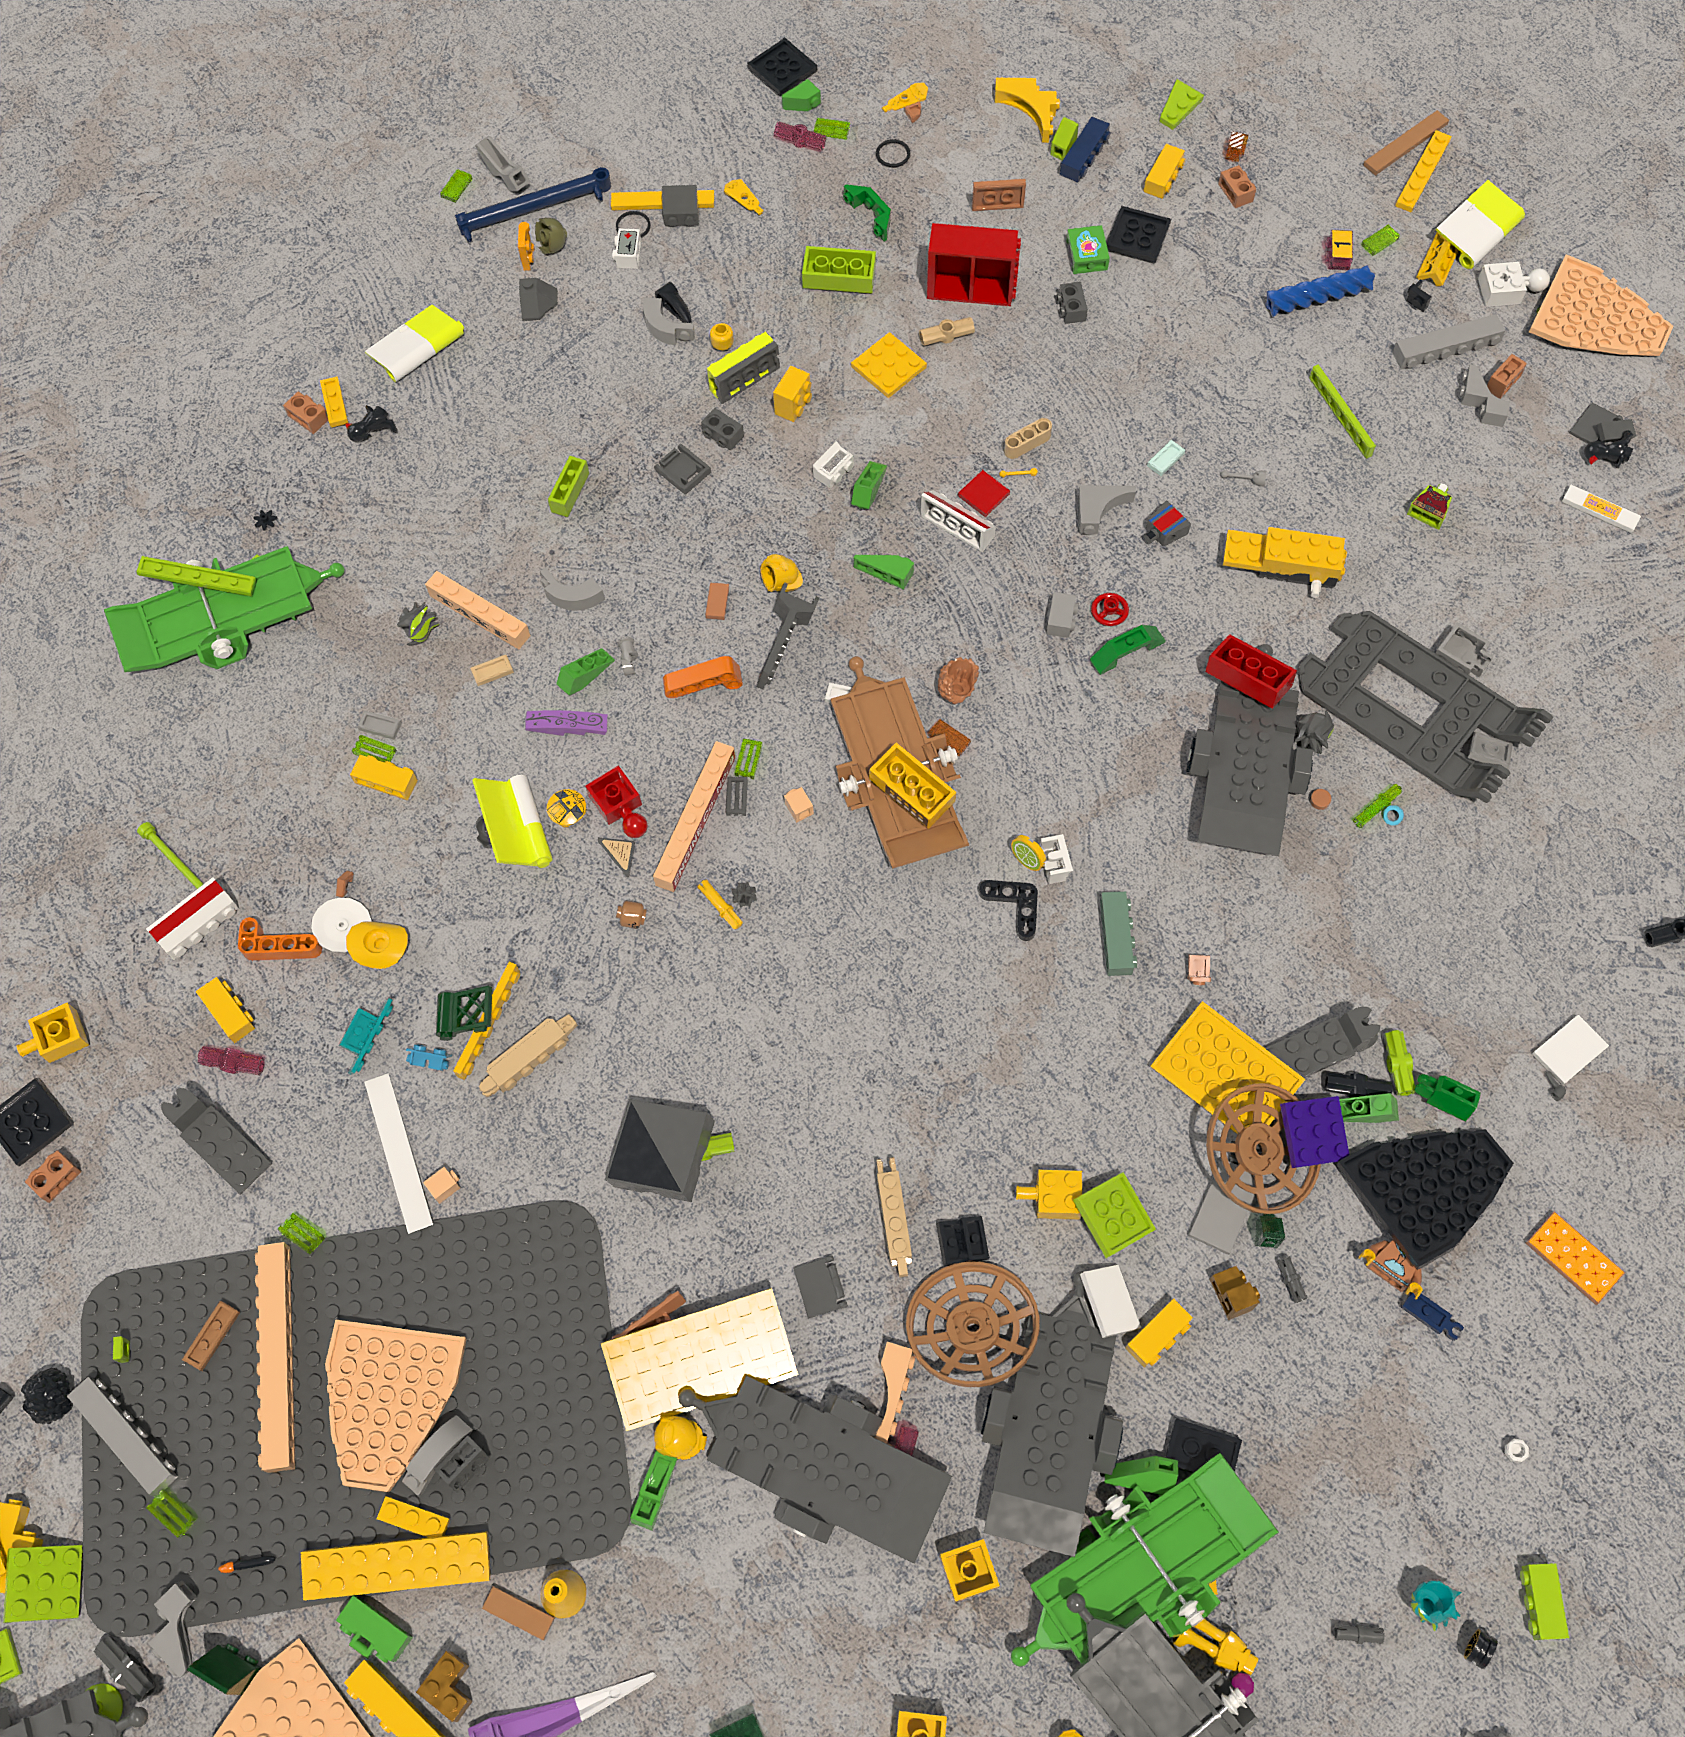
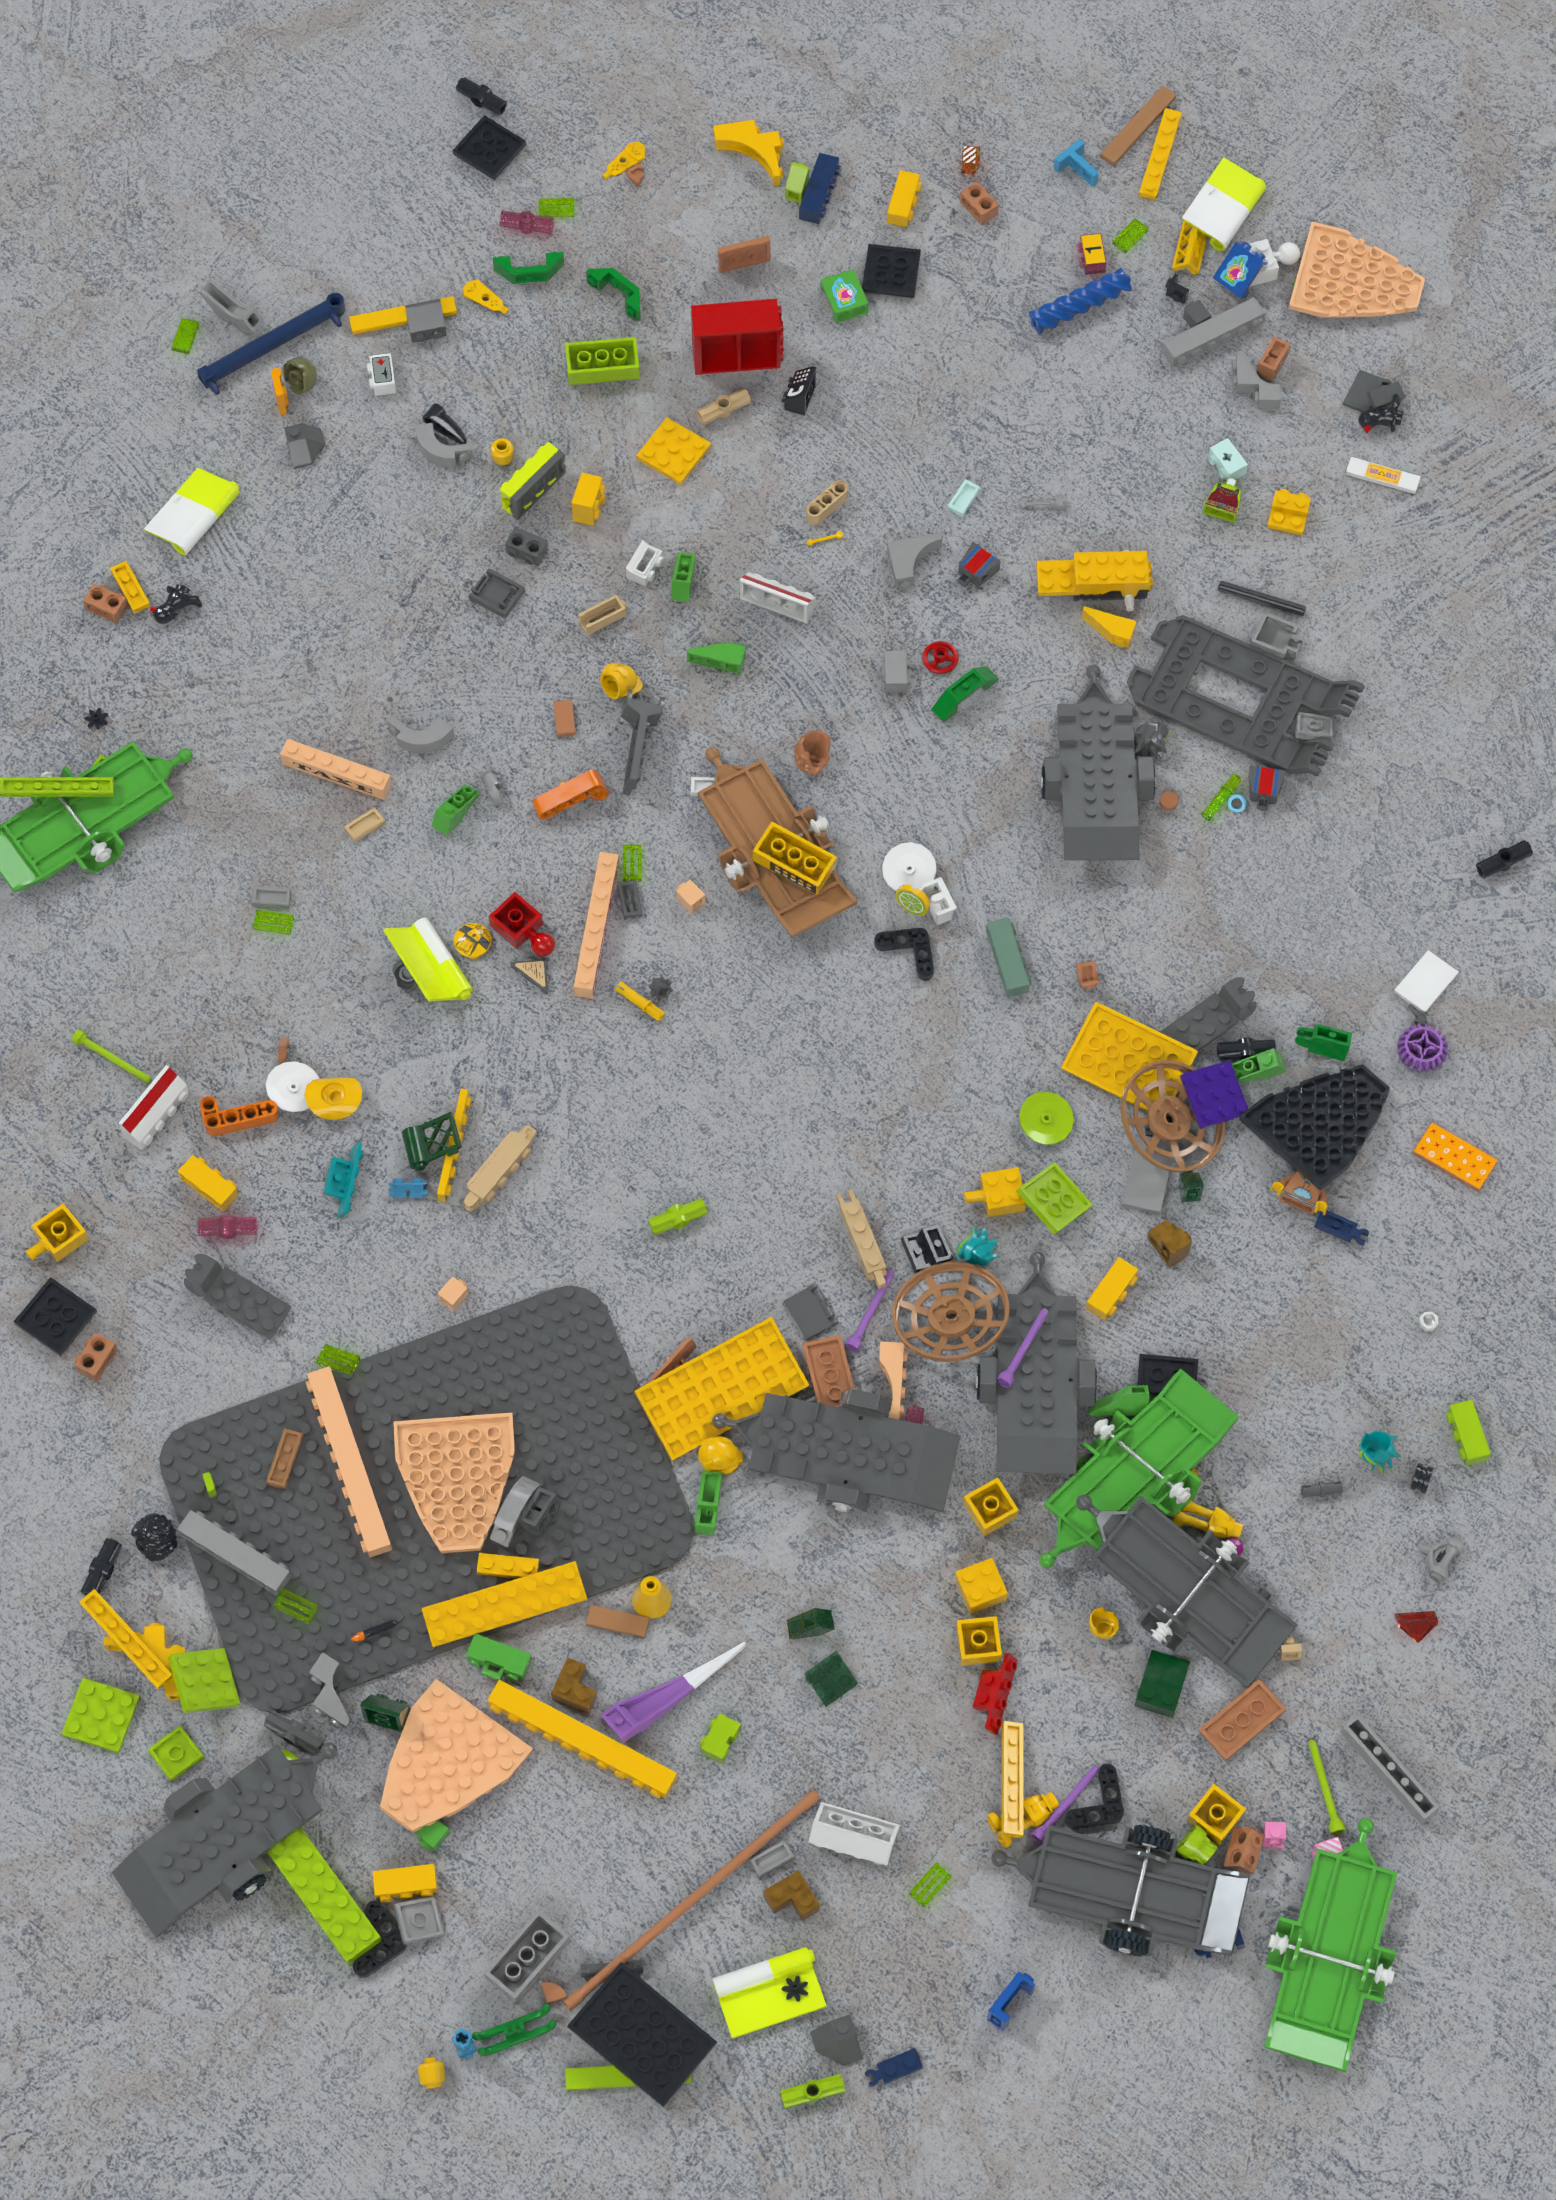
camera: 15 degrees left, 0 degrees up
(384, 777) = (292, 944): yellow brick -> none
(398, 1153) = (404, 1275): white sticker -> none
(417, 623) = (281, 793): dark grey hair -> none
(561, 722) = (451, 860): medium lavender slope -> none
(568, 486) = (391, 631): lime brick -> none
(631, 914) = (560, 1025): medium nougat head -> none
(634, 213) = (375, 334): black piece -> none
(660, 1150) = (642, 1223): dark grey tile -> none
(732, 1669) = (810, 1624): none -> clear green slope
(780, 507) = (599, 610): none -> tan window
(786, 21) = (481, 96): none -> black piece
(792, 182) = (535, 273): none -> green slope
(802, 97) = (518, 179): bright green slope -> none
(823, 1363) = (828, 1369): none -> nougat plate
(860, 1332) = (854, 1342): none -> medium lavender piece
(893, 141) = (620, 236): black piece -> none
(938, 1667) = (981, 1586): none -> yellow brick
(953, 737) = (820, 806): clear orange tile -> none
(984, 493) = (796, 565): red tile -> none
(1017, 1254) = (977, 1248): none -> teal hair
(1018, 1420) = (1007, 1377): none -> medium lavender piece
(1025, 328) = (800, 390): none -> black slope
(1032, 815) = (908, 865): none -> white piece
(1072, 302) = (843, 354): dark grey brick -> none
(1110, 1301) = (1065, 1270): white tile -> none
(1123, 1119) = (1046, 1118): none -> lime piece
(1180, 104) = (904, 121): lime wing -> none
(1251, 671) = (1083, 693): red brick -> none
(1292, 1279) = (1217, 1222): dark grey pin -> none
(1293, 610) = (1111, 627): none -> yellow slope
(1338, 161) = (1073, 157): none -> dark azure bracket
(1342, 411) = (1123, 421): lime tile -> none
(1399, 1063) = (1279, 1022): lime piece -> none
(1426, 802) = (1265, 785): none -> torso
(1433, 321) = (1195, 313): none -> dark grey brick
(1442, 466) = (1227, 460): none -> light aqua brick
(1455, 609) = (1262, 598): none -> black axle
(1487, 284) = (1240, 268): none -> blue panel
(1497, 528) = (1289, 512): none -> yellow plate
(1573, 1128) = (1437, 1048): none -> medium lavender gear

